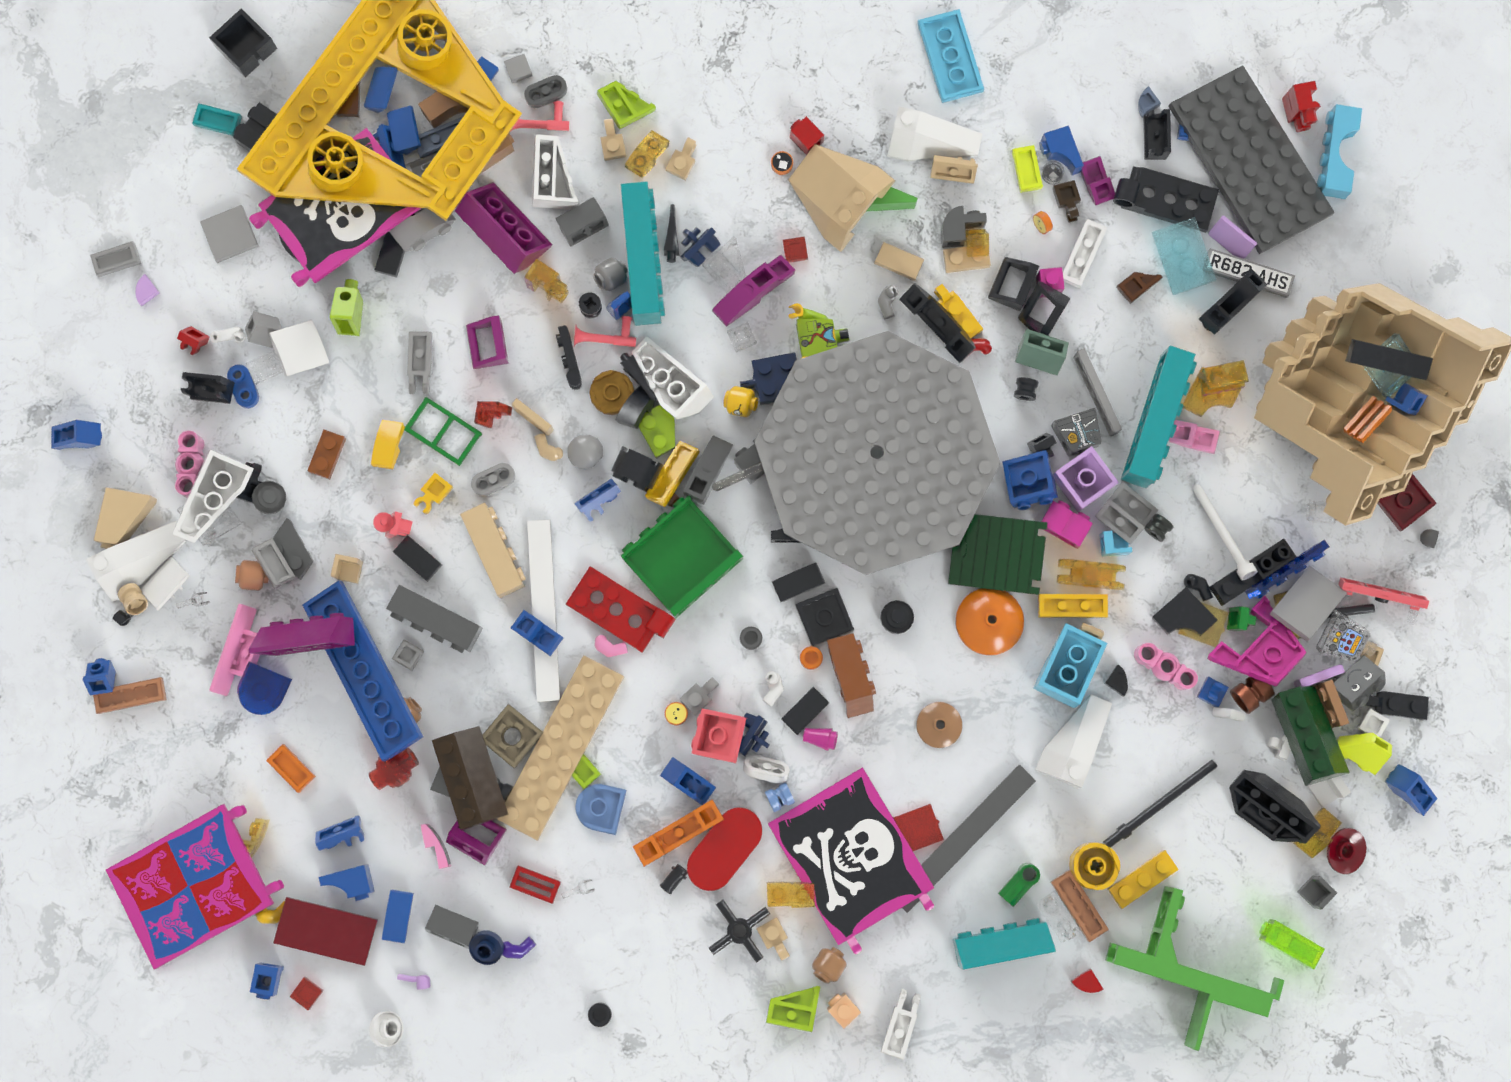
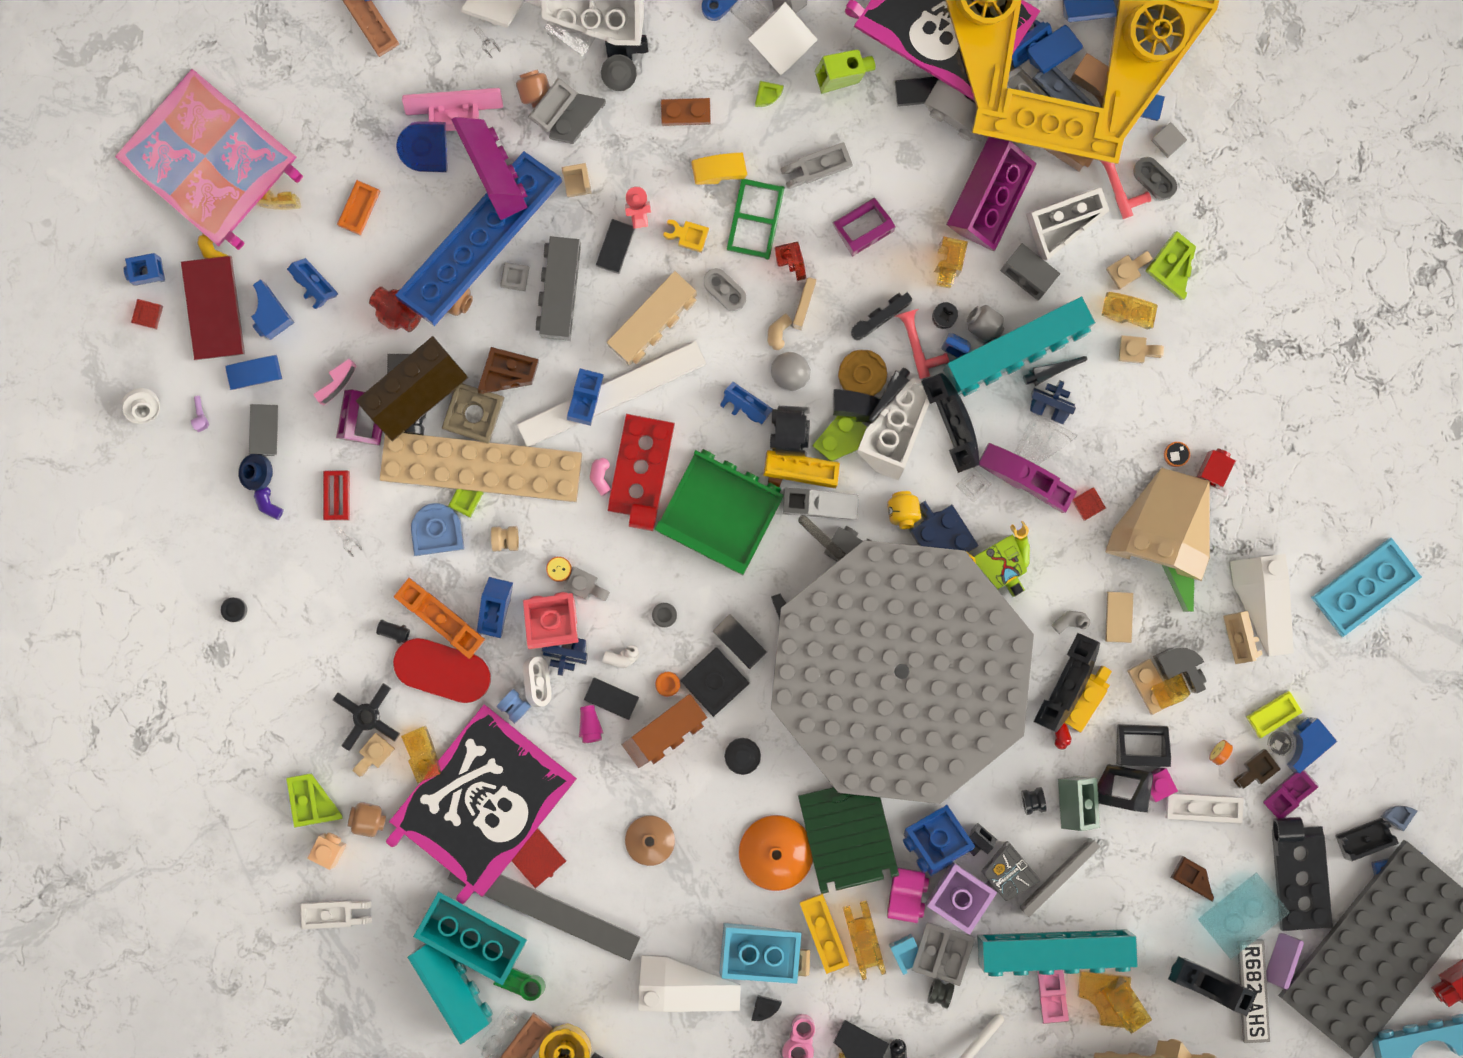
camera: 75 degrees right, 5 degrees up
(340, 379) = (768, 93): none -> lime tile
(487, 692) = (507, 371): none -> reddish brown wing
(631, 749) = (504, 538): none -> tan wheel
(682, 329) = (956, 420): none -> black slope
(966, 909) = (470, 938): none -> teal slope

